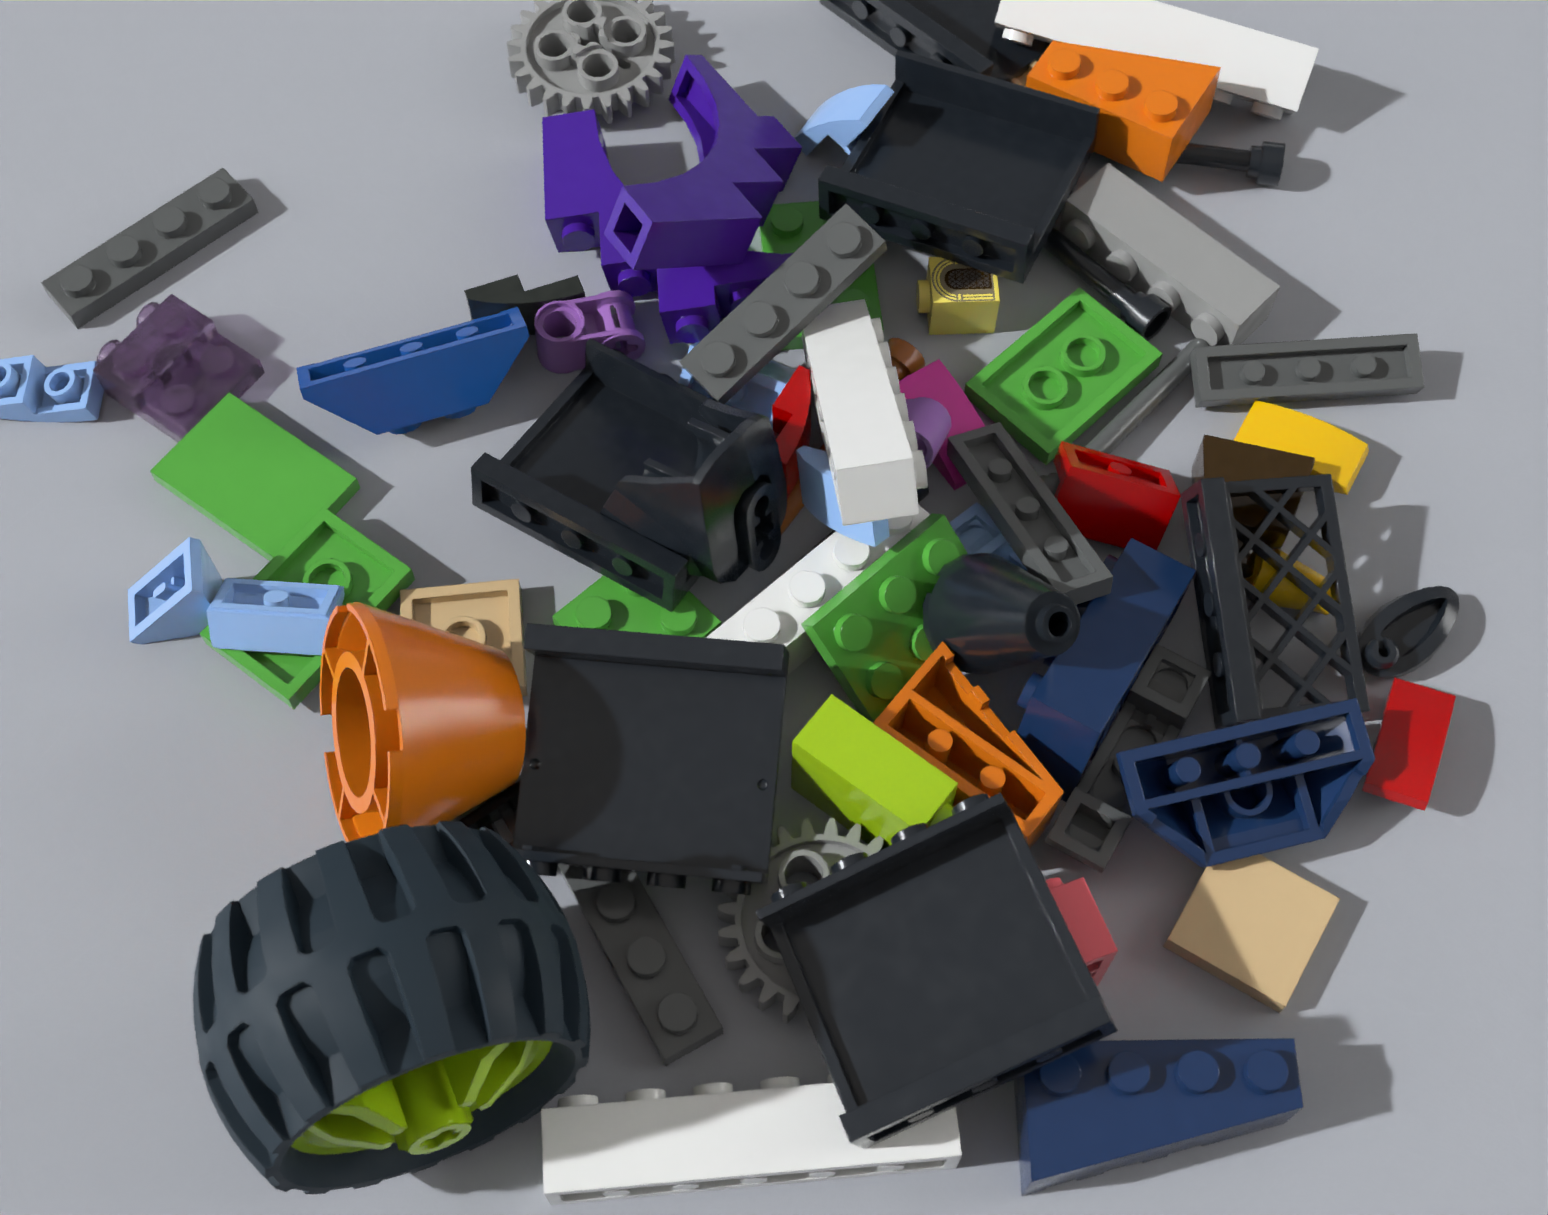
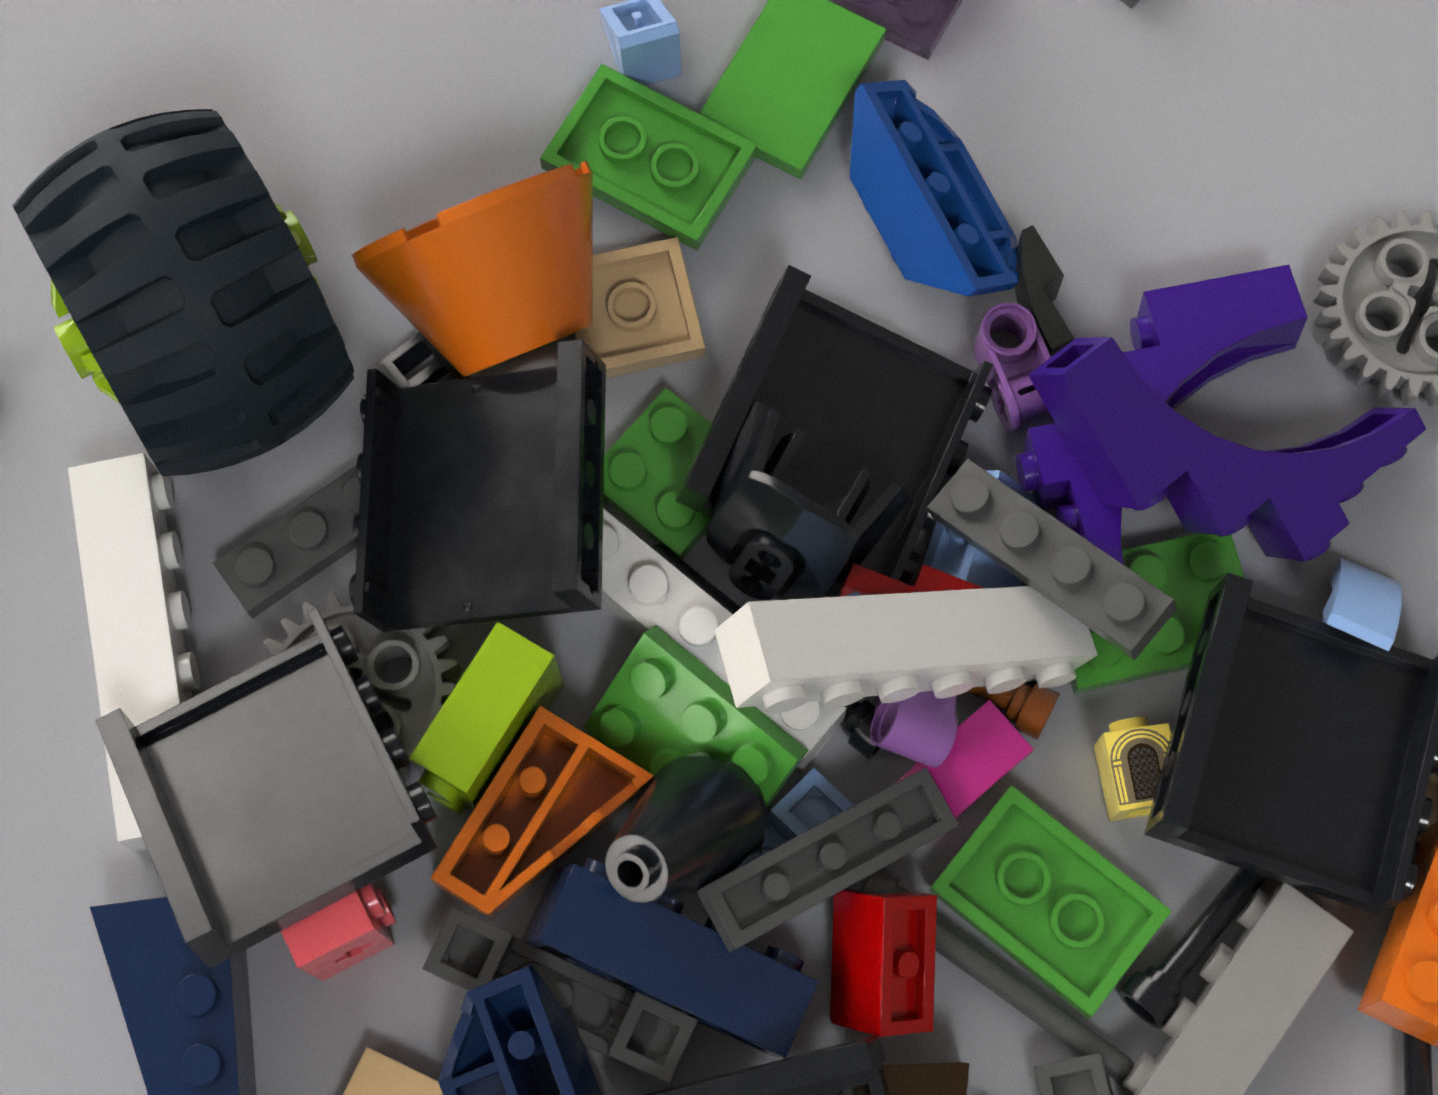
camera: 85 degrees right, 10 degrees up
(272, 615) = (625, 125): light blue slope -> none

